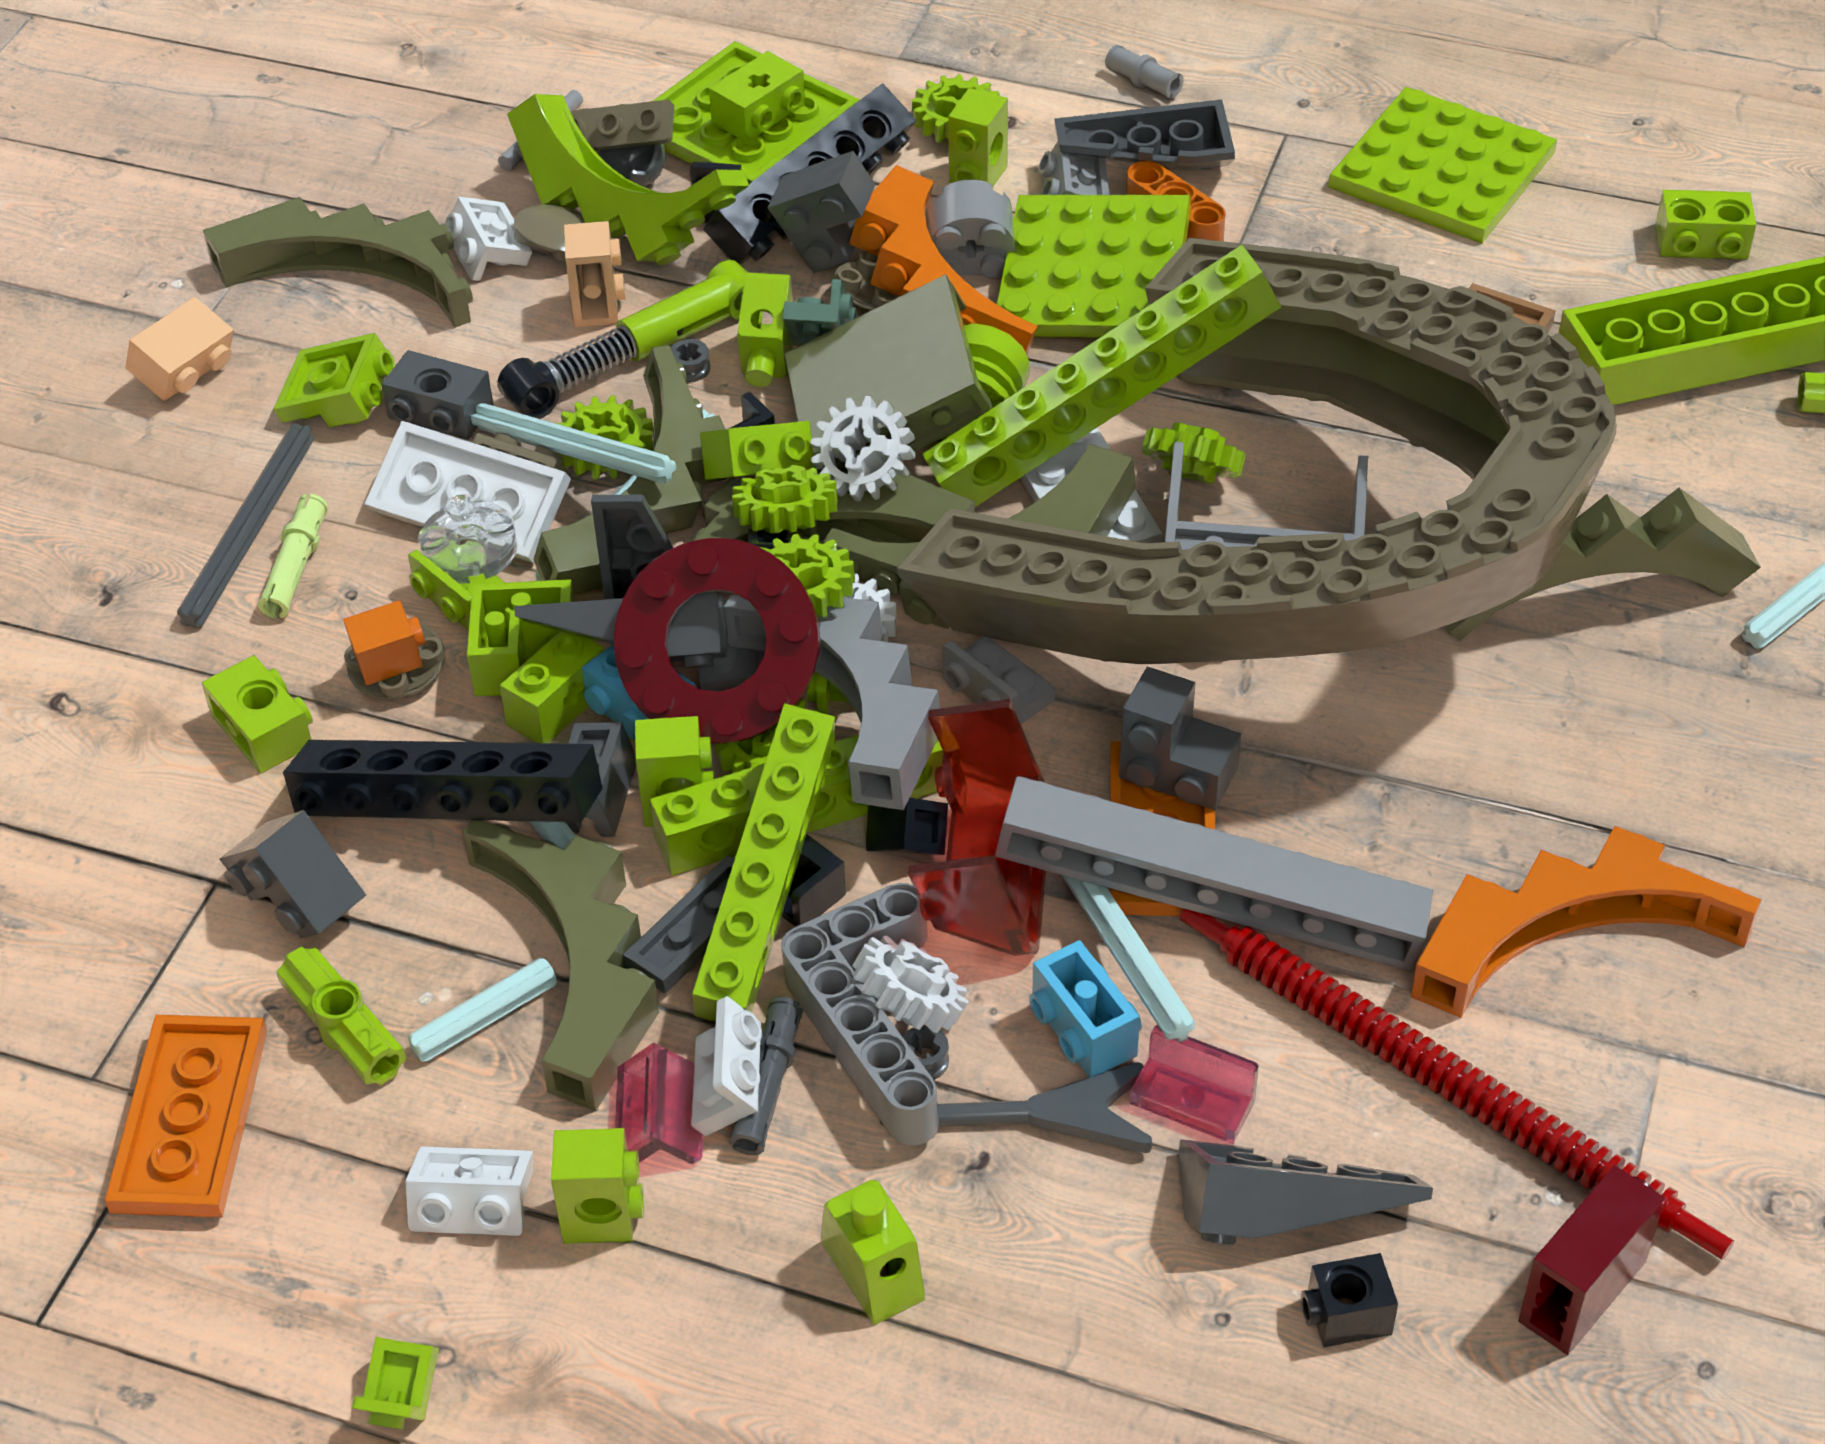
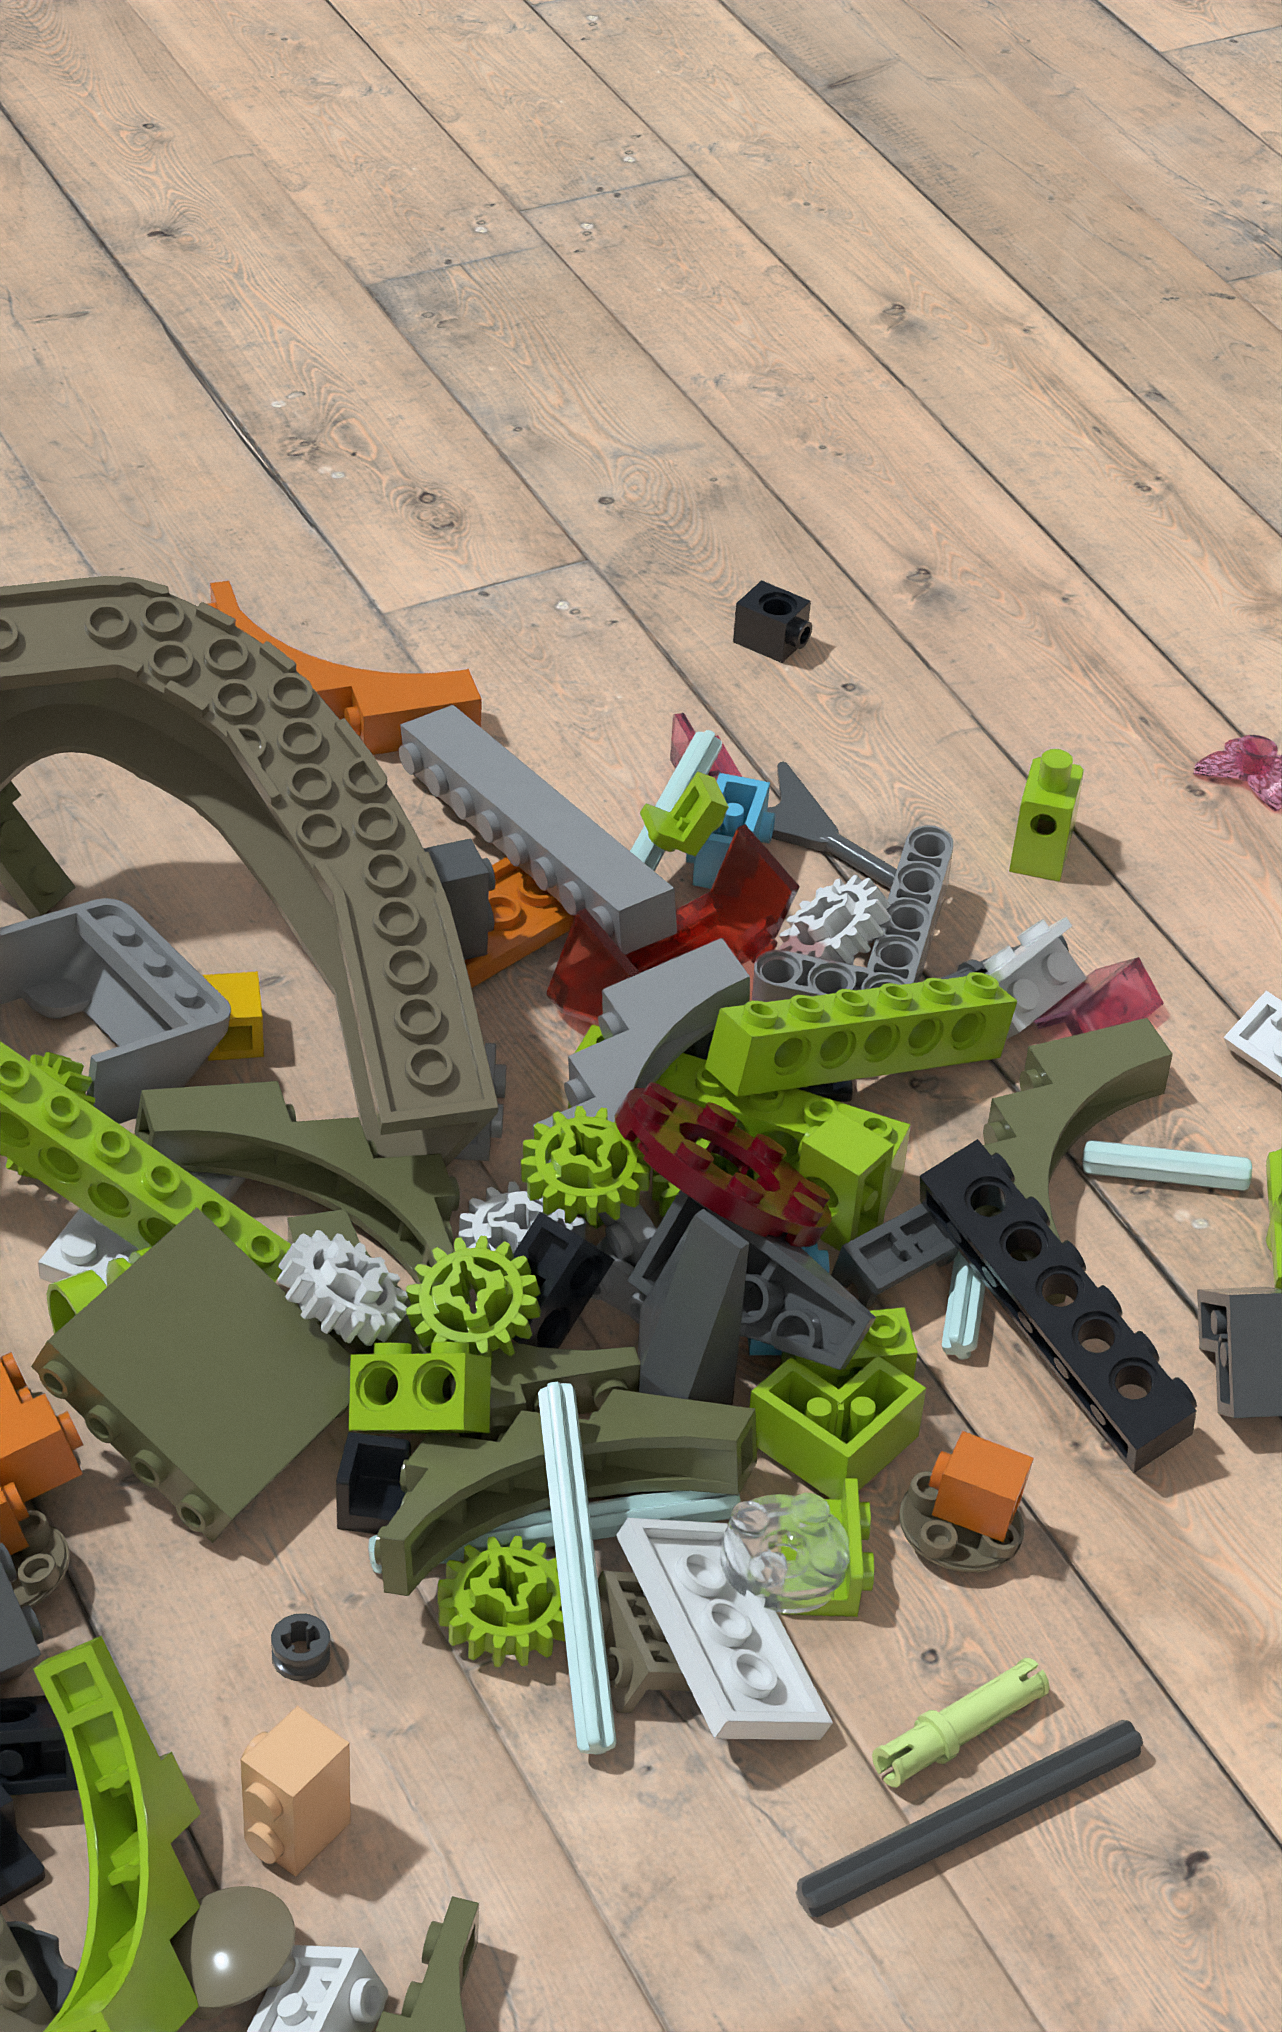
camera: 140 degrees left, 5 degrees down
(258, 713) = (1150, 1550): lime brick -> none
(336, 381) = (716, 1917): lime plate -> none
(436, 393) = (620, 1838): dark grey brick -> none
(537, 385) = (172, 1682): piece -> none
(596, 1185) = (1211, 953): lime brick -> none
(682, 933) = (933, 1097): dark grey plate -> none
(764, 345) = (206, 1571): lime torso -> none
(812, 318) = (149, 1519): sand green bracket -> none
(1095, 921) = (692, 818): none -> lime bracket
(1249, 1196) = (733, 690): dark grey wedge -> none
(1440, 1070) = (537, 655): red hose -> none
(1591, 1259) = (618, 526): dark red brick -> none

